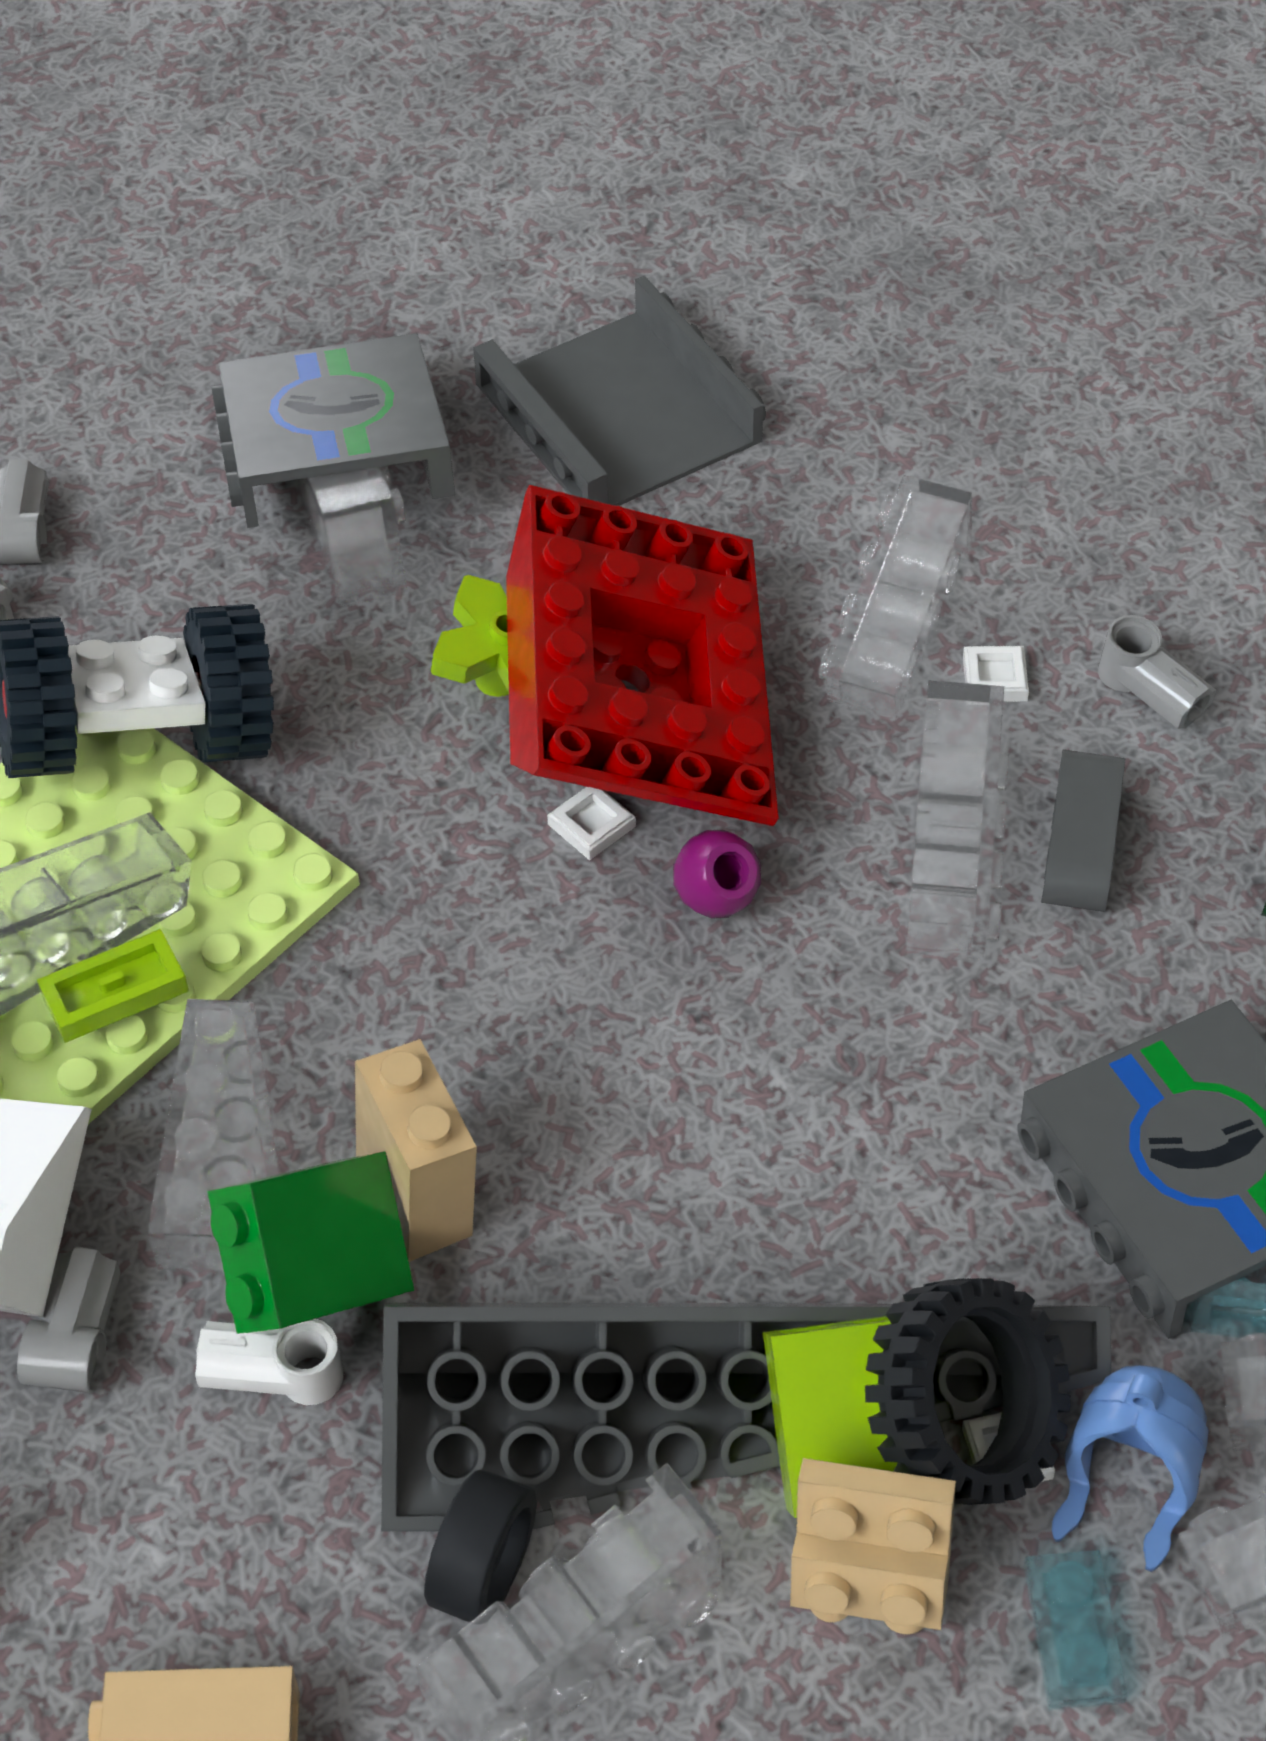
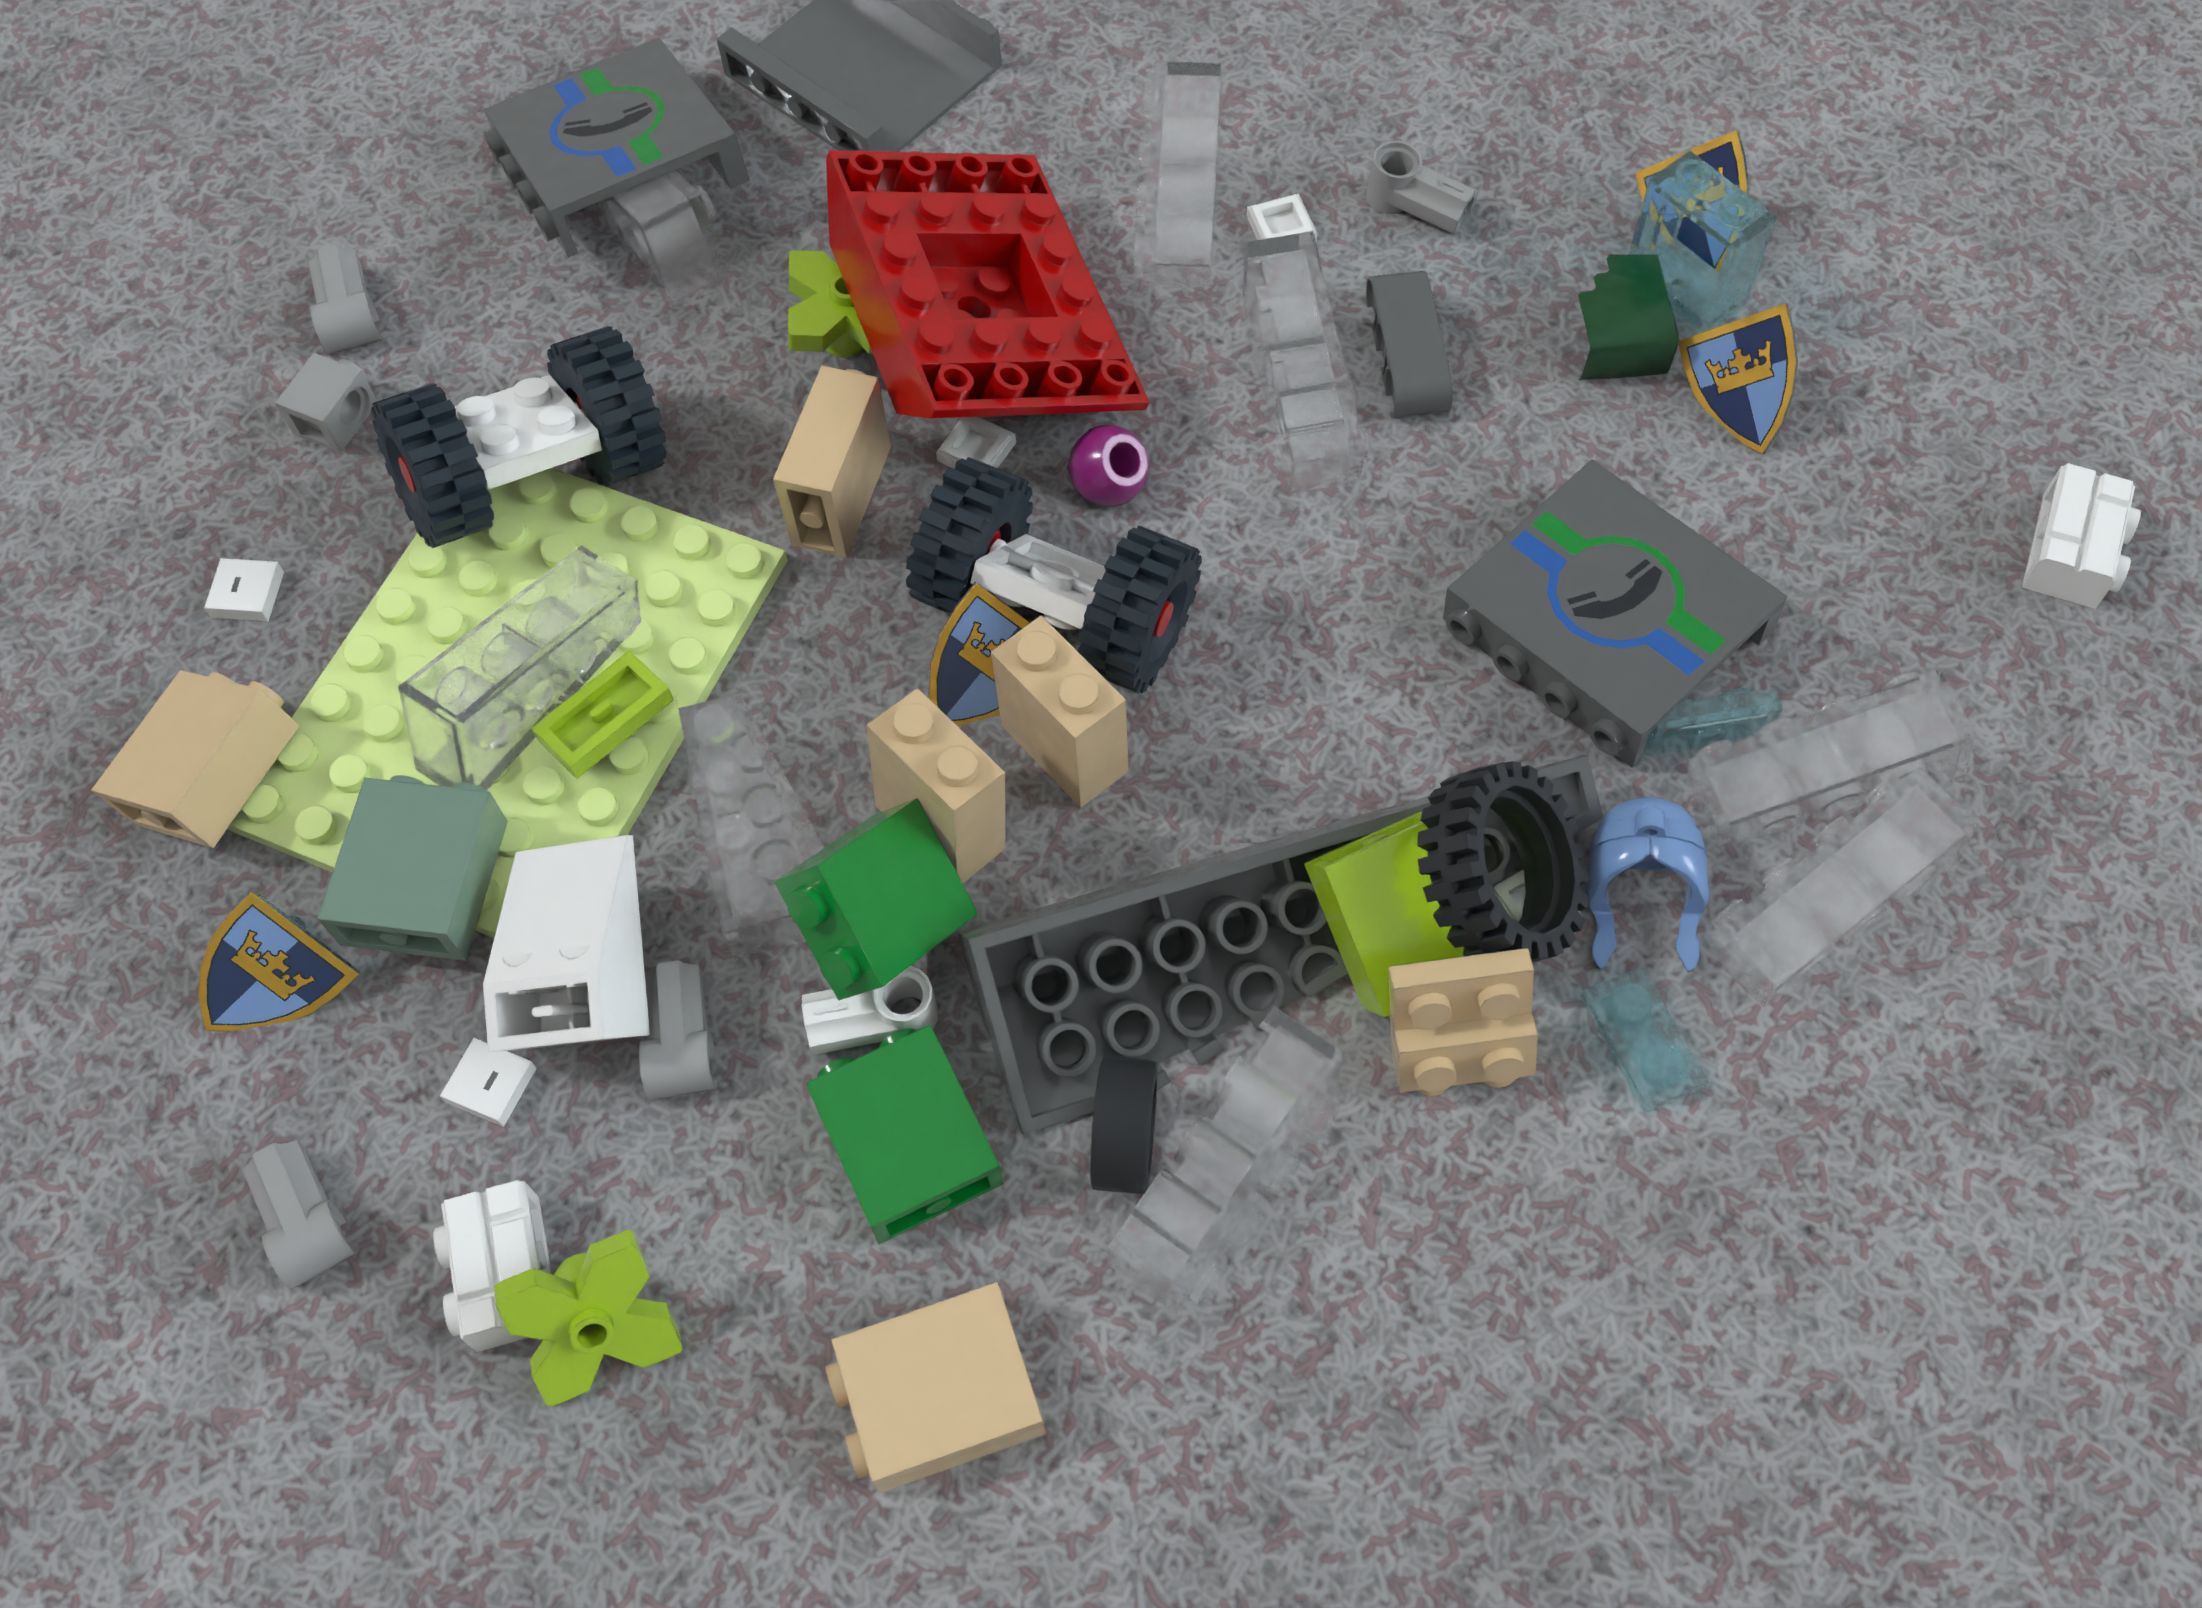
camera: 15 degrees left, 10 degrees up
(258, 1492) = (904, 1132): none -> green brick
(433, 795) = (833, 461): none -> tan brick
(518, 1038) = (962, 660): none -> shield
(569, 1107) = (1061, 711): none -> tan brick
(671, 1022) = (1123, 609): none -> black plate

